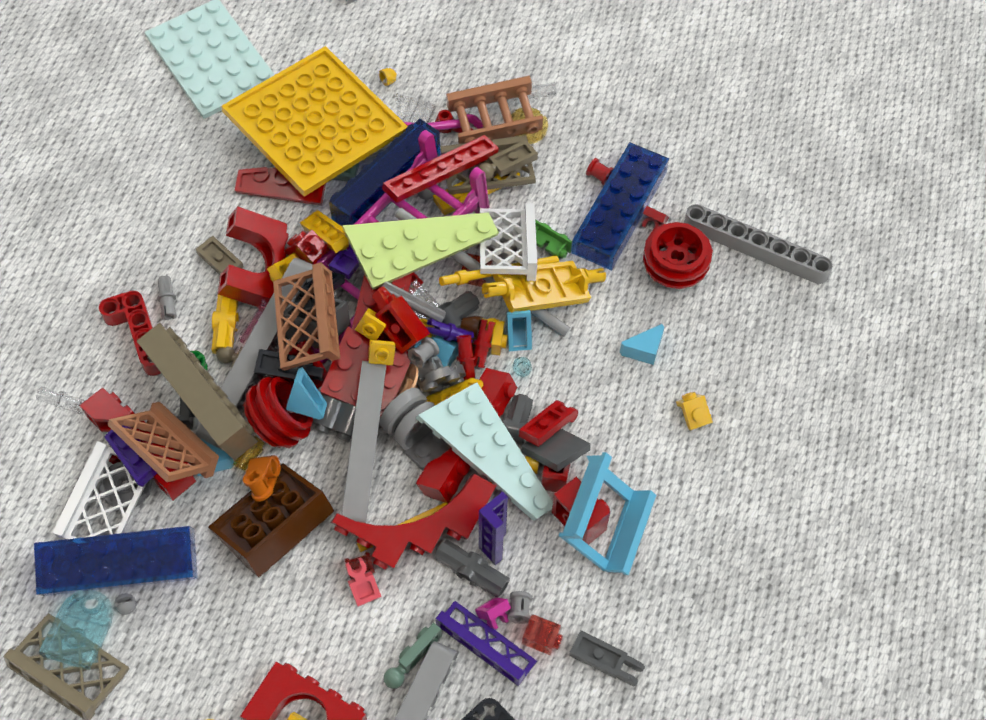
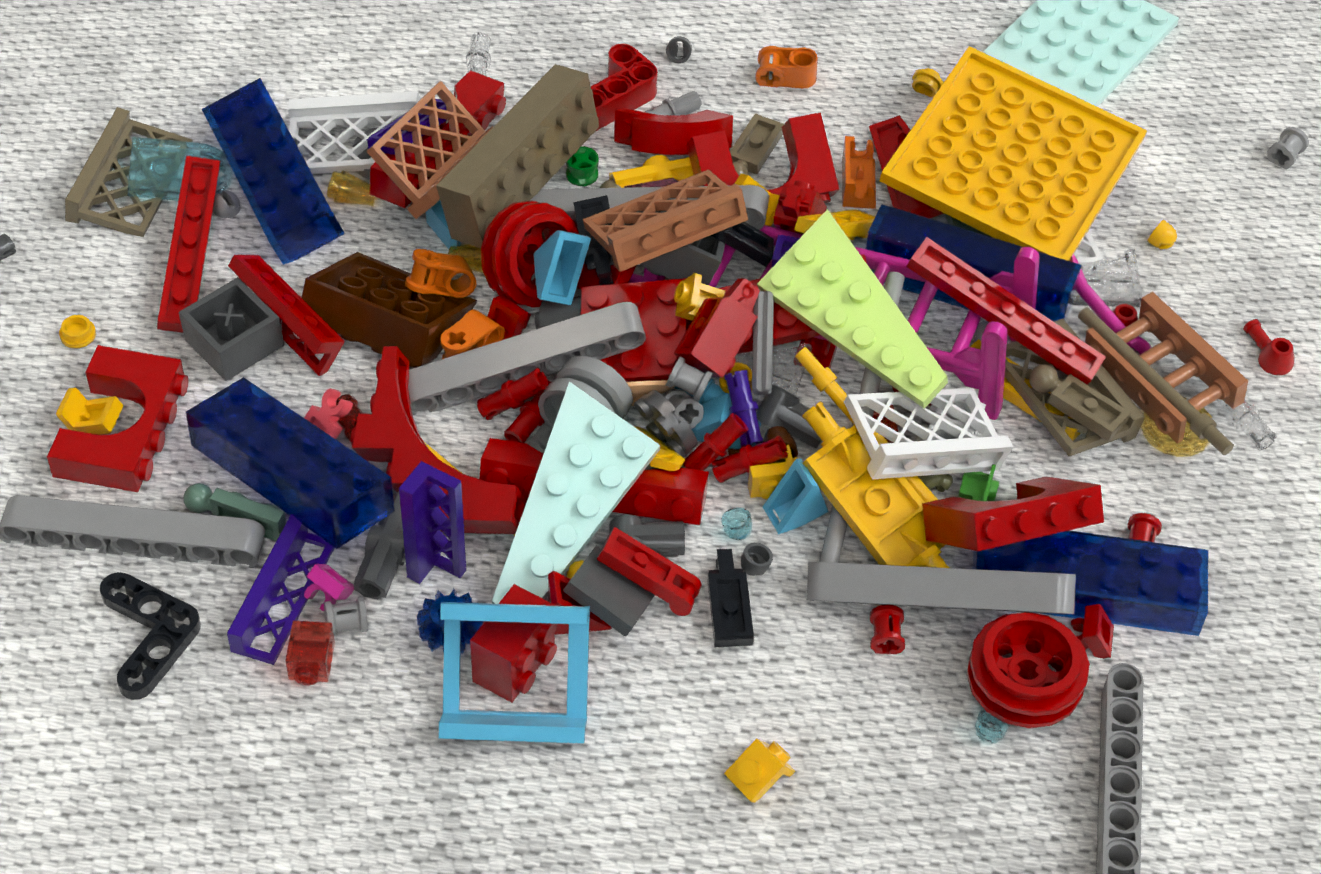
camera: 70 degrees right, 10 degrees down
(114, 270) = (672, 49): none -> dark grey hinge
(150, 515) = (349, 189): none -> clear yellow cone
(158, 220) = (790, 67): none -> orange piece
(161, 634) = (188, 240): none -> red plate
(198, 302) = (667, 132): none -> red arch
(210, 146) = (926, 81): none -> yellow plate
(256, 582) = (292, 311): none -> red fence
(257, 622) = (231, 328): none -> dark grey brick
(274, 210) = (858, 175): none -> orange hinge
(313, 448) = (509, 316): none -> red tile
(321, 473) = (470, 333): none -> orange piece
(381, 352) = (657, 319): yellow bracket -> none
(383, 460) = (512, 394): none -> red pin
(394, 609) = (291, 462): none -> clear blue brick
(396, 454) = (526, 421): none -> red pin
(496, 61) = (1275, 355): none -> red bar
(534, 548) = (432, 628): none -> clear blue gear
(548, 110) = (1200, 423): none -> dark tan bar
(551, 365) = (762, 559): none -> dark grey hinge
(576, 389) = (729, 603): none -> black hinge
(595, 232) = (1041, 509): none -> red arch
(604, 657) = (300, 742): dark grey hinge -> none
(614, 277) = (941, 587): none -> light grey beam
(622, 315) = (887, 629): none -> red bush
(644, 345) = (847, 673): medium azure slope -> none
(700, 289) = (987, 733): none -> clear light blue hinge

